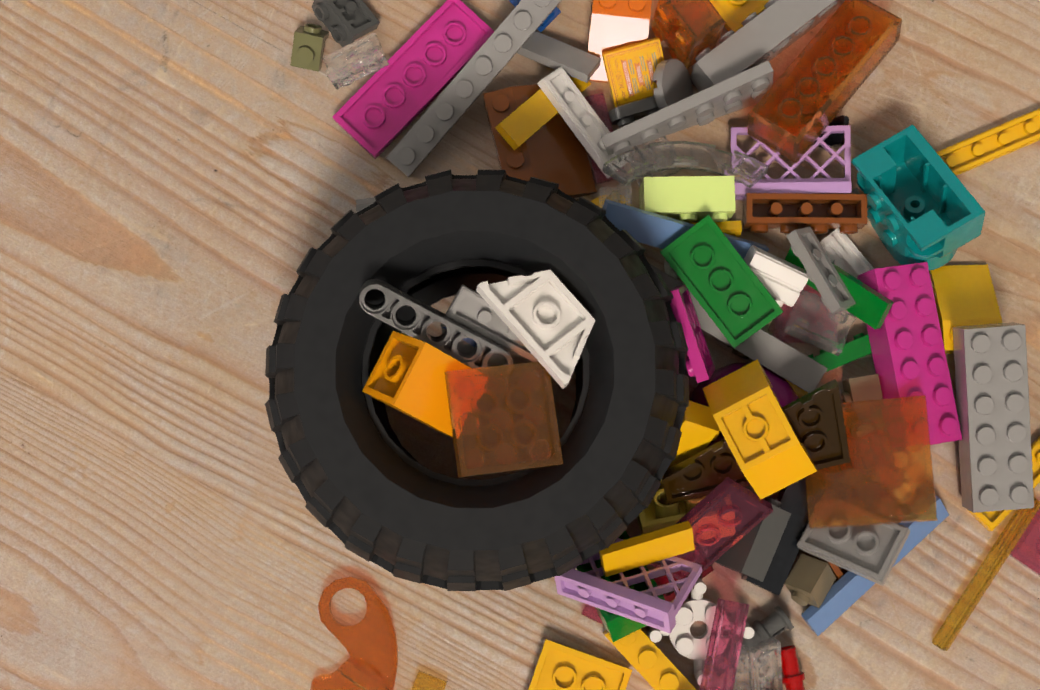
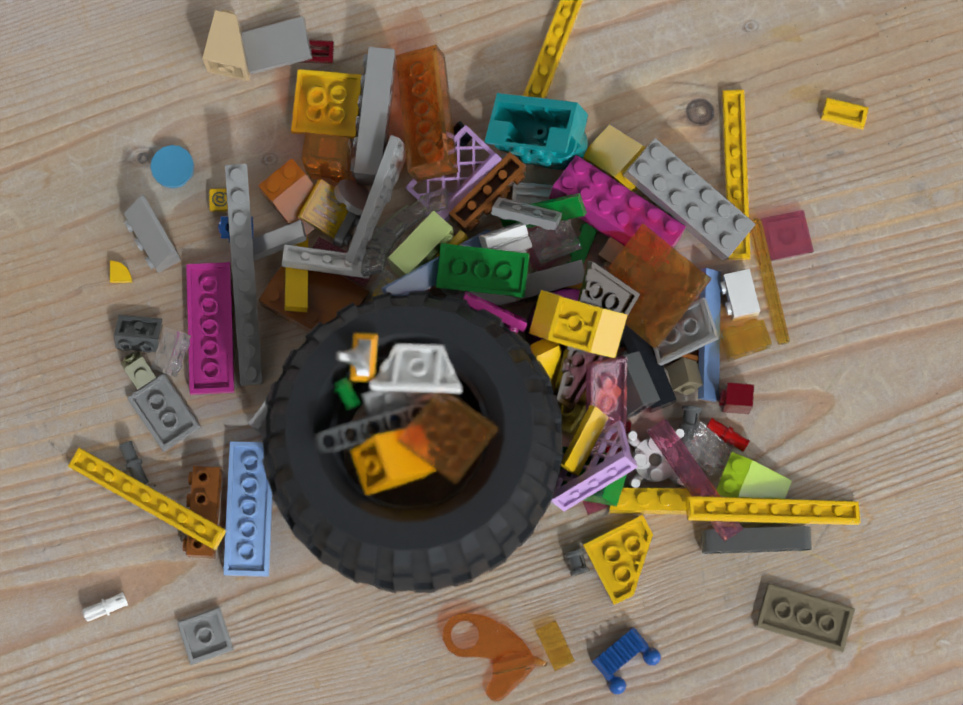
camera: 40 degrees left, 5 degrees down
(53, 235) = (105, 607): none -> white axle
(115, 357) = (205, 636): none -> light grey tile
(191, 176) = (147, 498): none -> yellow tile
(215, 130) = (133, 463): none -> dark grey pin
(230, 240) = (205, 502): none -> dark orange brick
(251, 298) = (247, 512): none -> light blue plate
(292, 111) = (163, 412): none -> light grey tile
(447, 269) = (347, 394): none -> green pin
(500, 247) = (361, 357): none -> piece
(523, 649) = (577, 562): none -> dark grey bush
(839, 656) = (737, 398): none -> dark red brick
(906, 606) = (745, 339): none -> clear yellow brick
(945, 557) = (740, 295): none -> white brick

